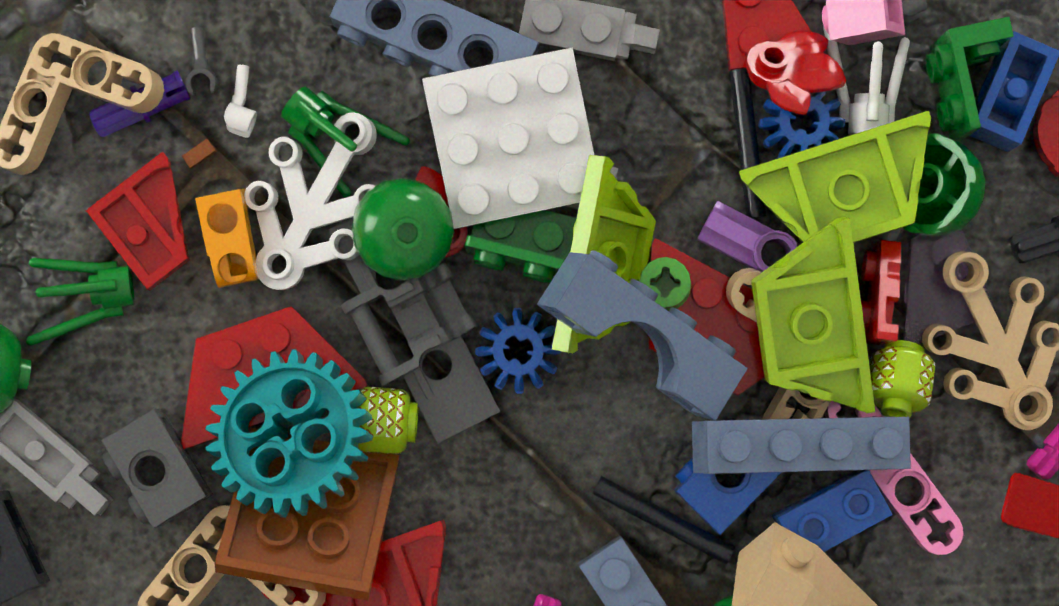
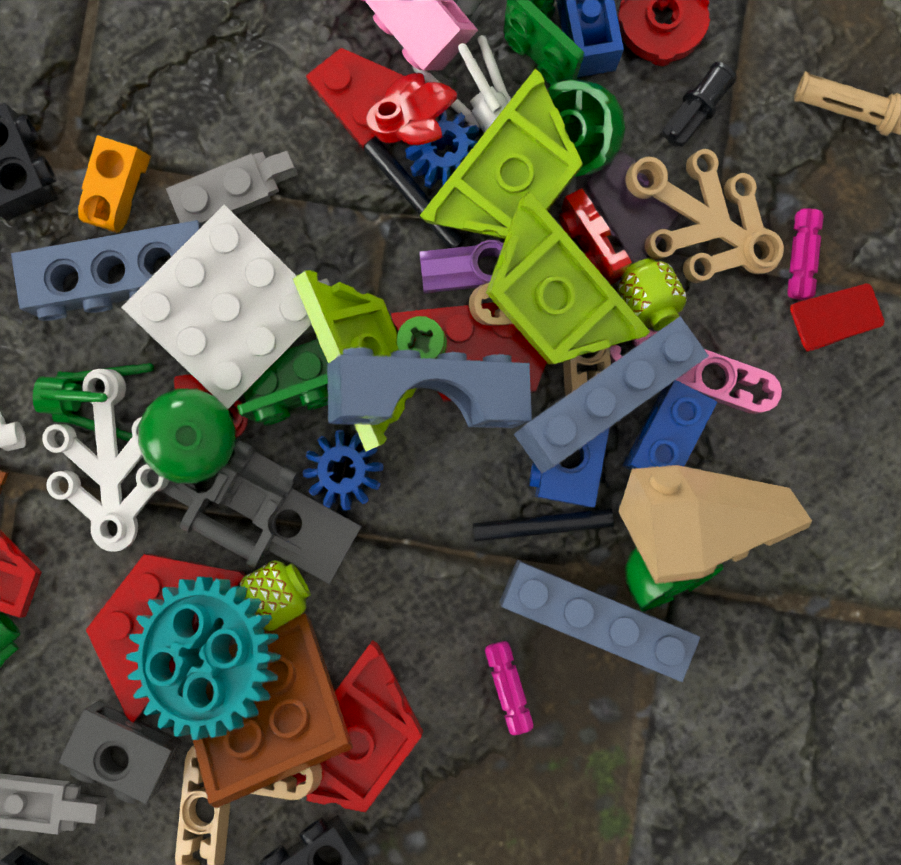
camera: 35 degrees left, 0 degrees up
(228, 237) = (56, 533): light orange leg -> none

